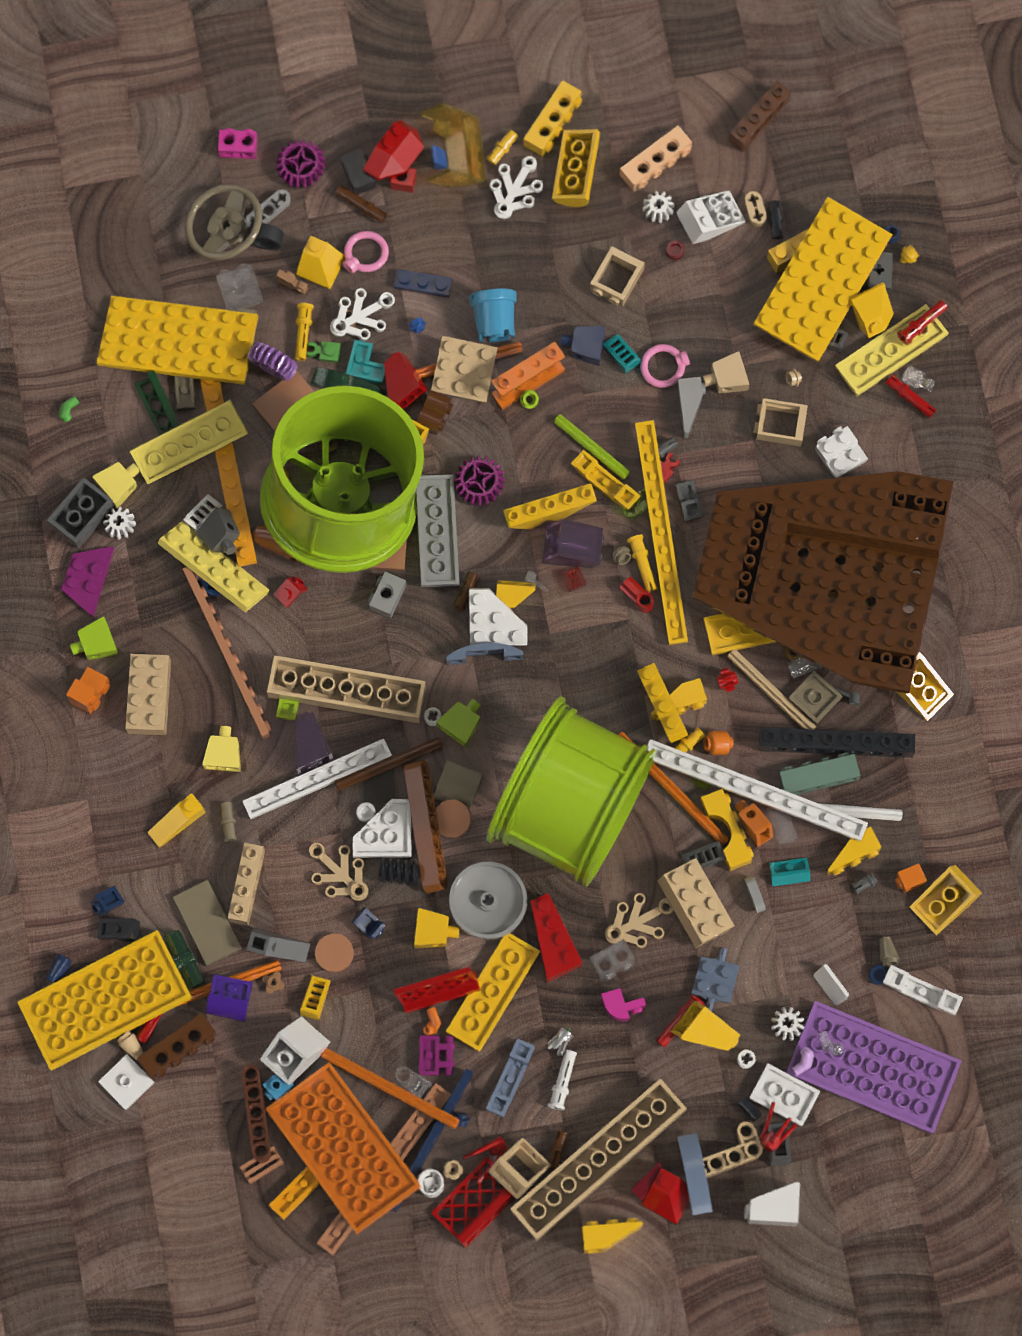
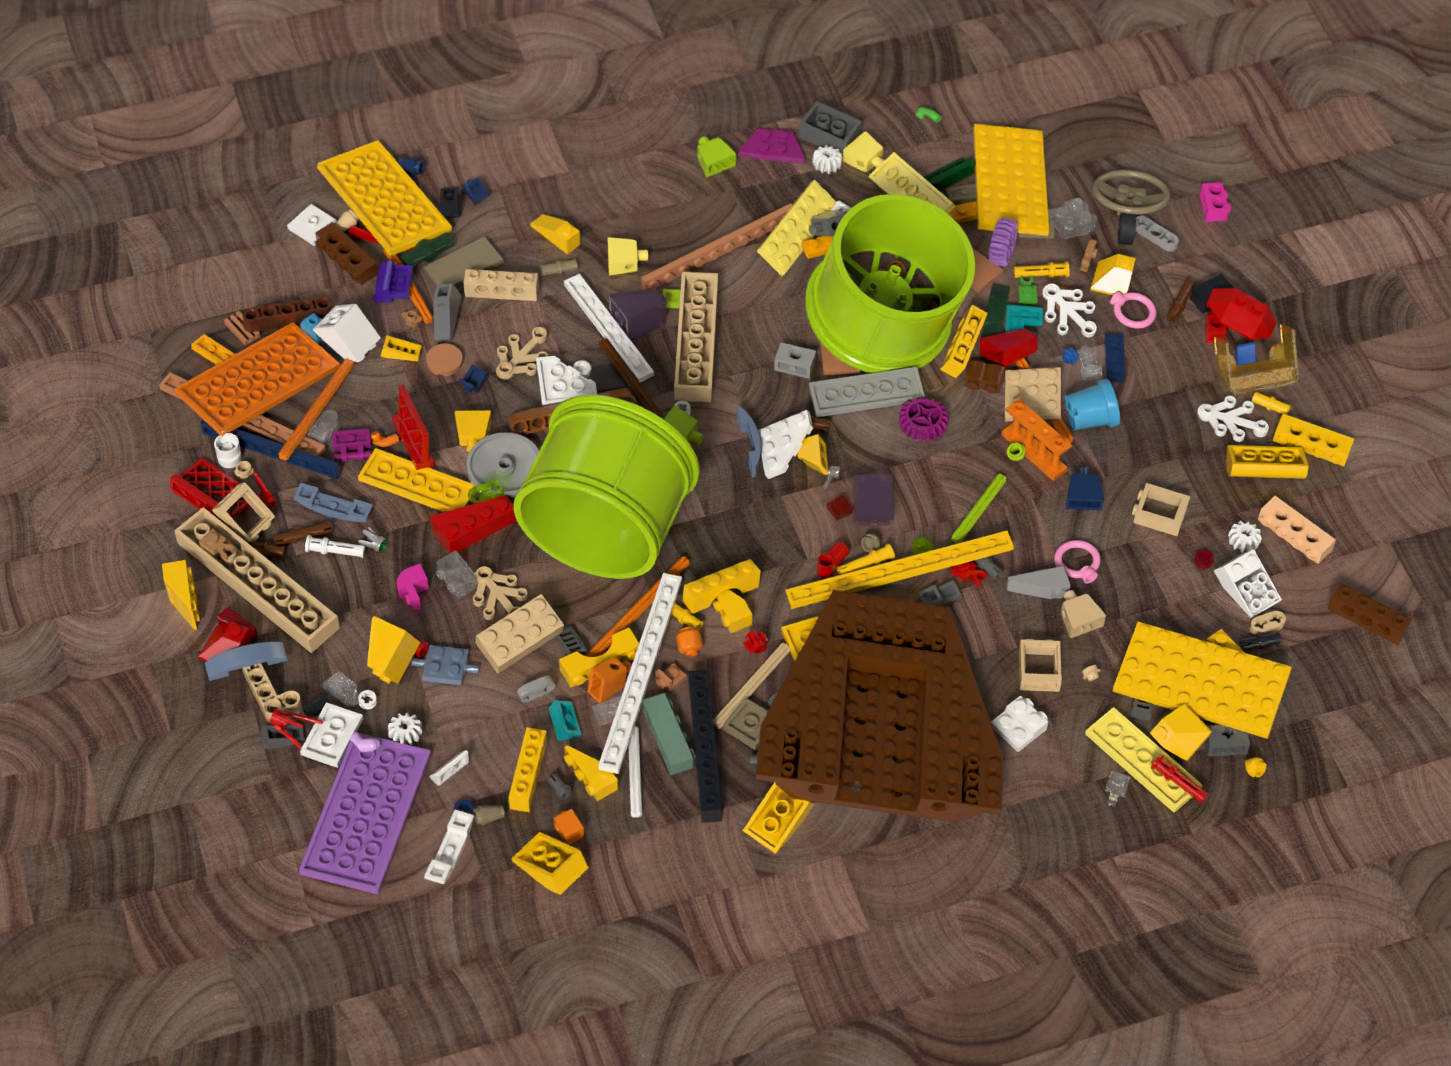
camera: 80 degrees right, 20 degrees down
(88, 690) = (663, 153): orange brick -> none
(148, 694) = (669, 196): tan brick -> none
(290, 590) = (787, 287): red bracket -> none
(315, 167) = (1208, 249): magenta gear -> none
(399, 872) = (525, 394): black piece -> none
(437, 309) = (1089, 369): none -> clear piece
(463, 1119) = (291, 469): dark blue plate -> none
(524, 920) = (484, 488): none -> clear neon green beam
(543, 1119) = (302, 533): none -> reddish brown pin
(550, 508) = (900, 465): yellow slope -> none
(560, 1197) = (215, 543): none -> medium nougat plate
(604, 481) = (946, 520): yellow slope -> none
(635, 360) = (1075, 534): teal slope -> none
(730, 1085) = (341, 688): none -> clear piece
(754, 766) = (670, 678): none -> nougat bracket
(775, 1207) = (213, 732): white slope -> none
(829, 1046) = (382, 763): clear arm -> none
(846, 910) = (528, 769): none -> yellow brick
(893, 229) = (1276, 744): dark blue plate -> none
(908, 394) = (1100, 775): red pin -> none

